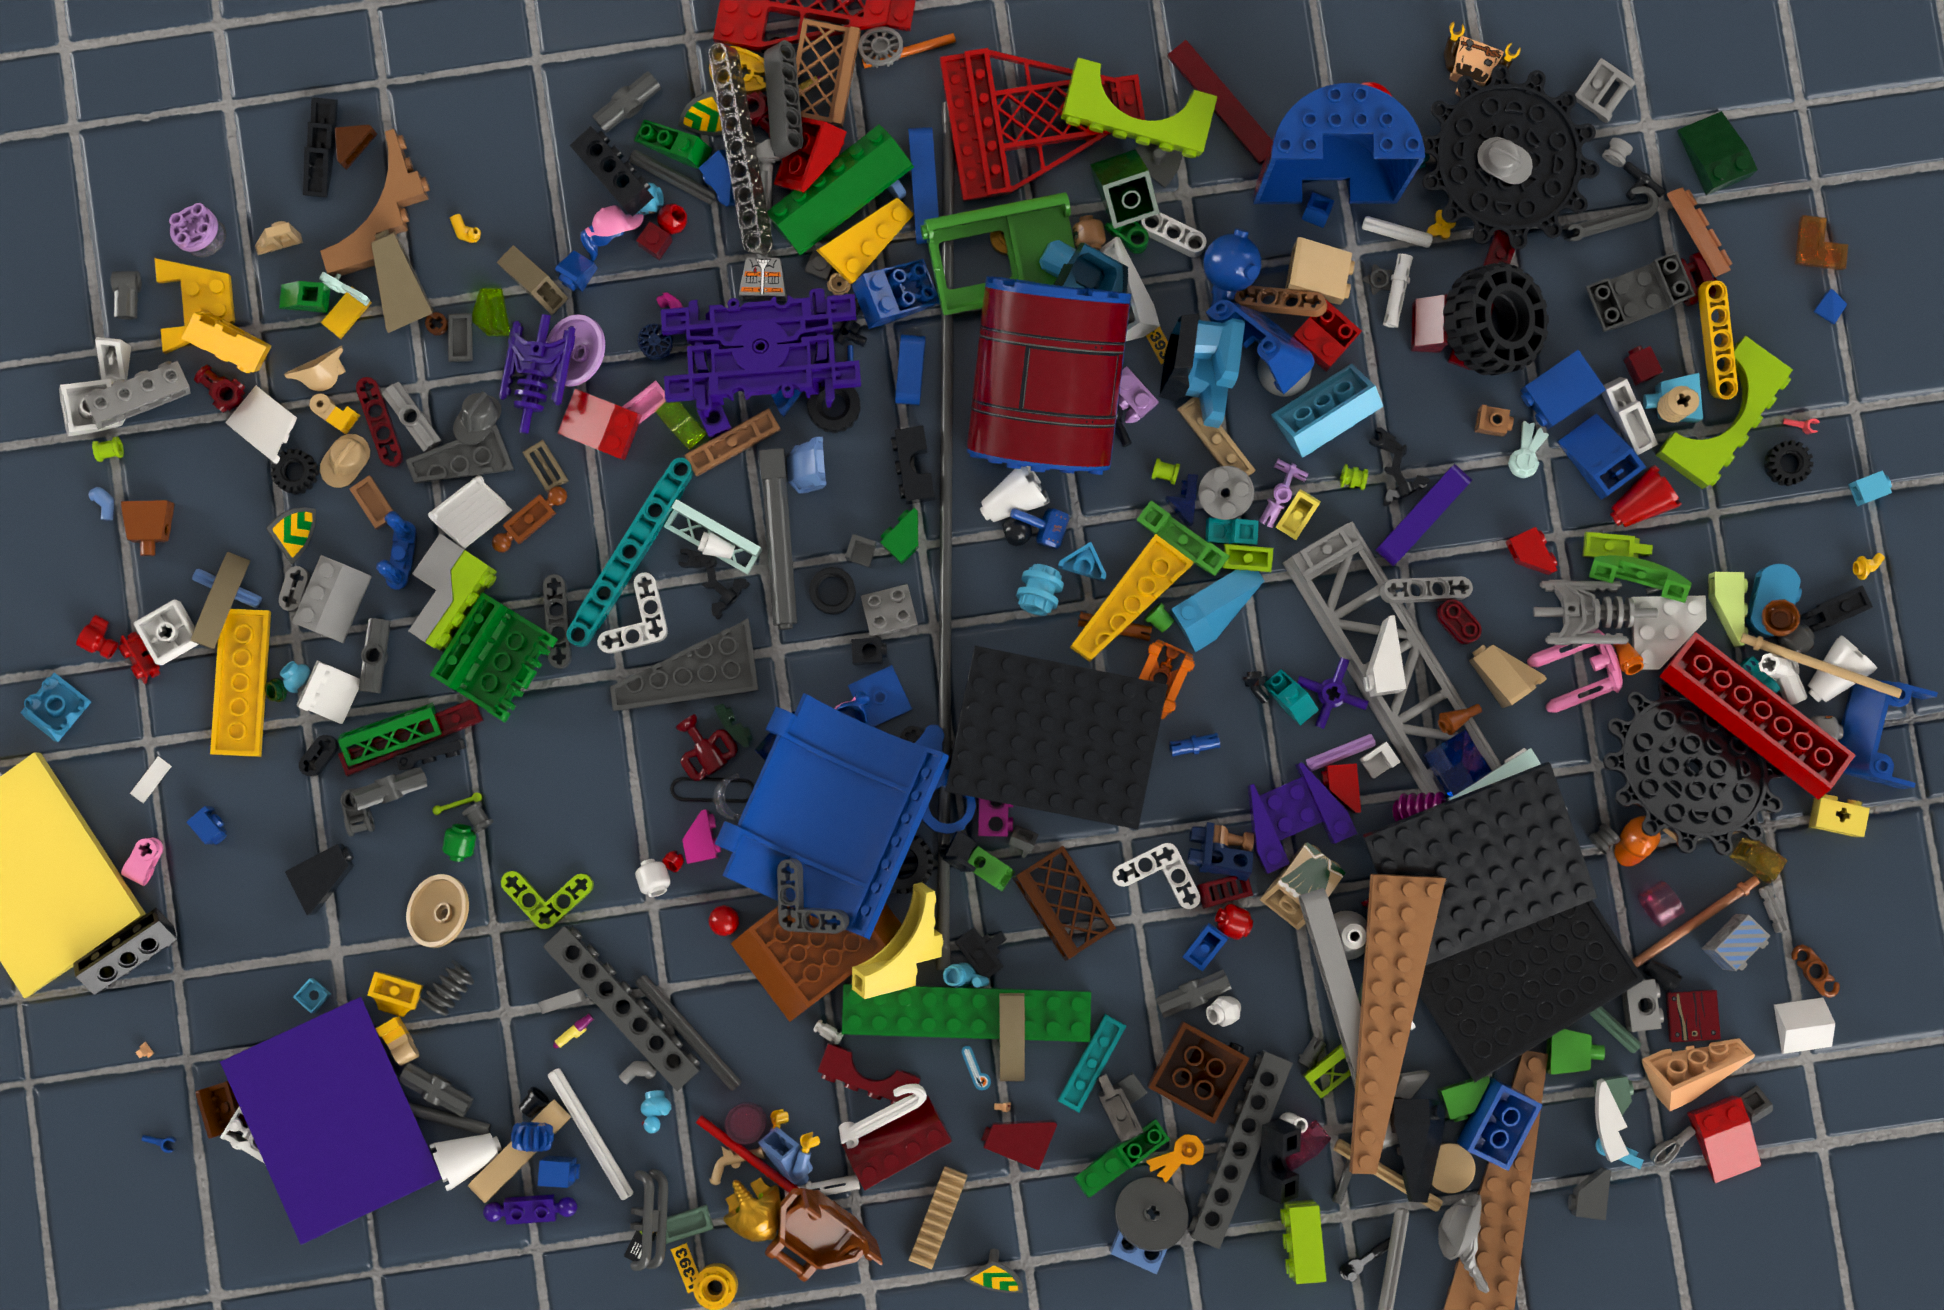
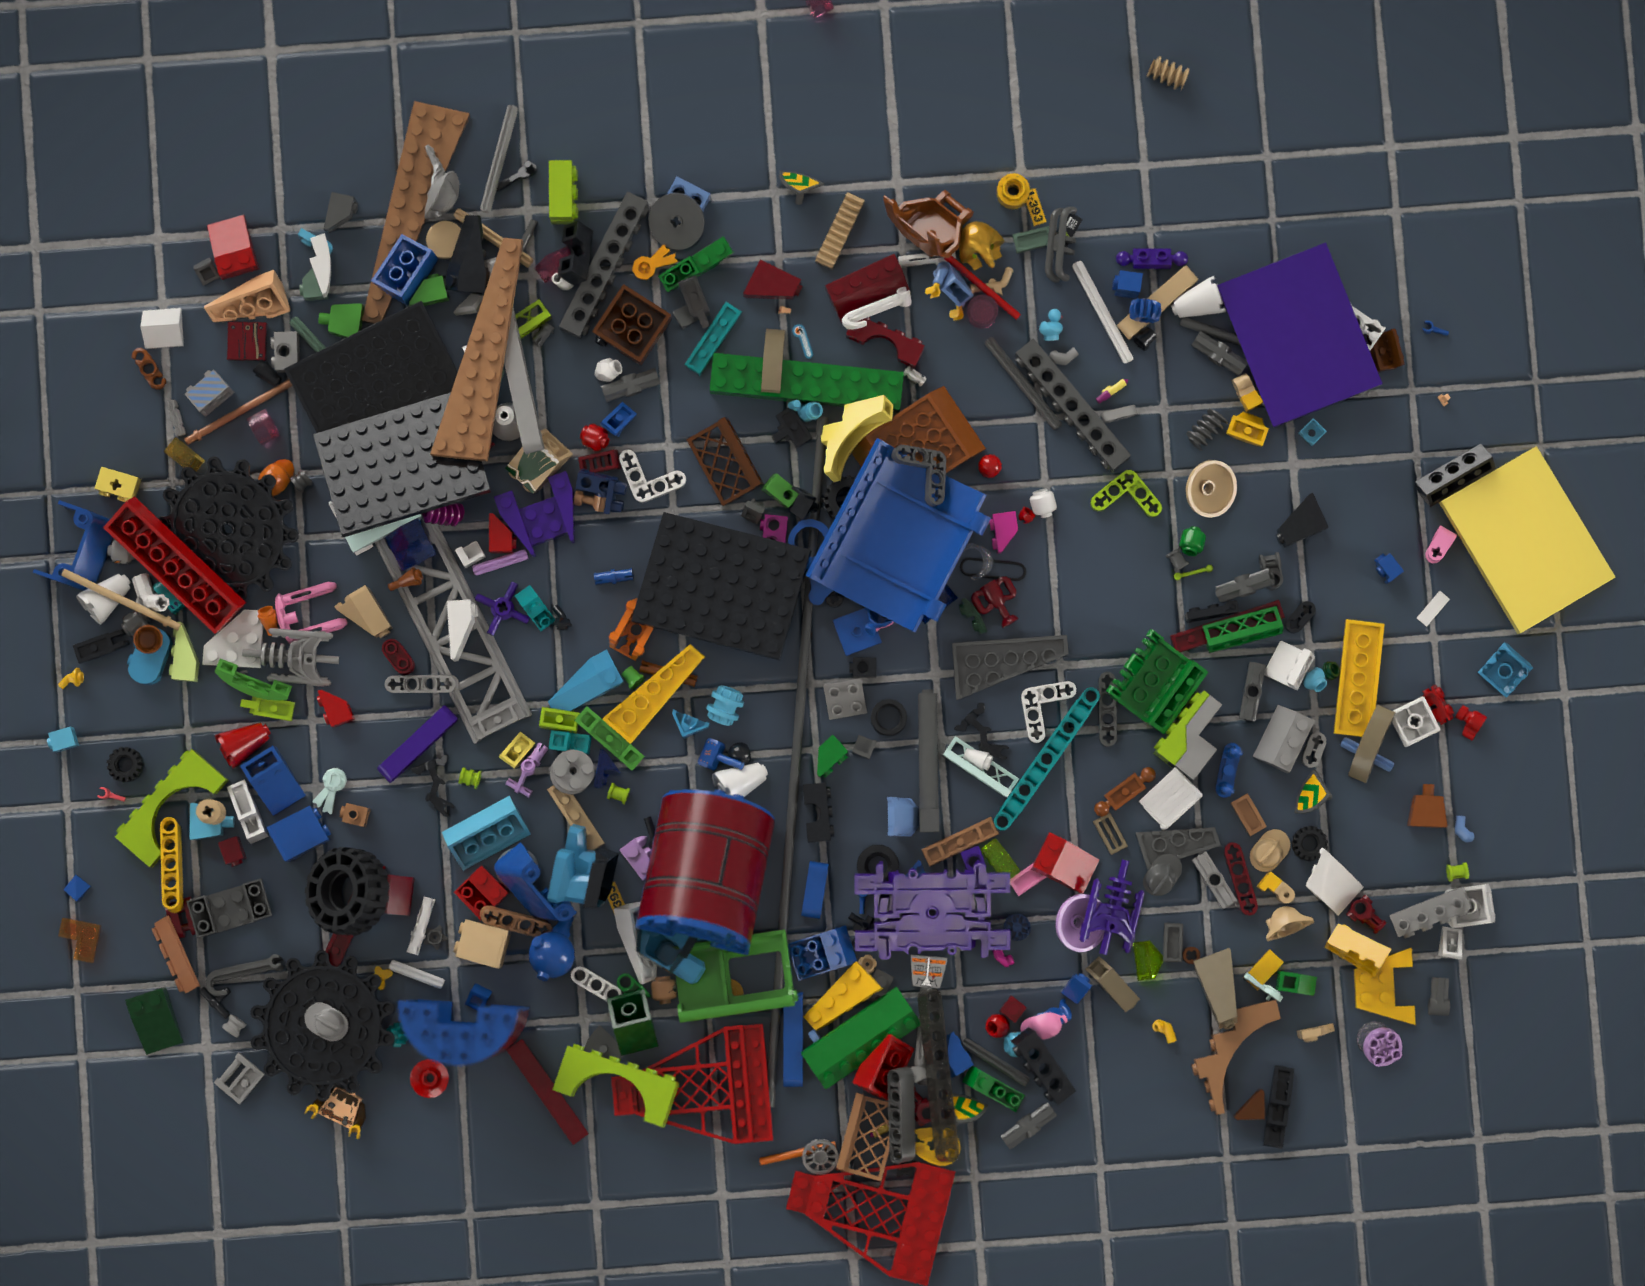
camera: 175 degrees left, 0 degrees up
(1678, 1140) = (268, 248): light grey piece -> none

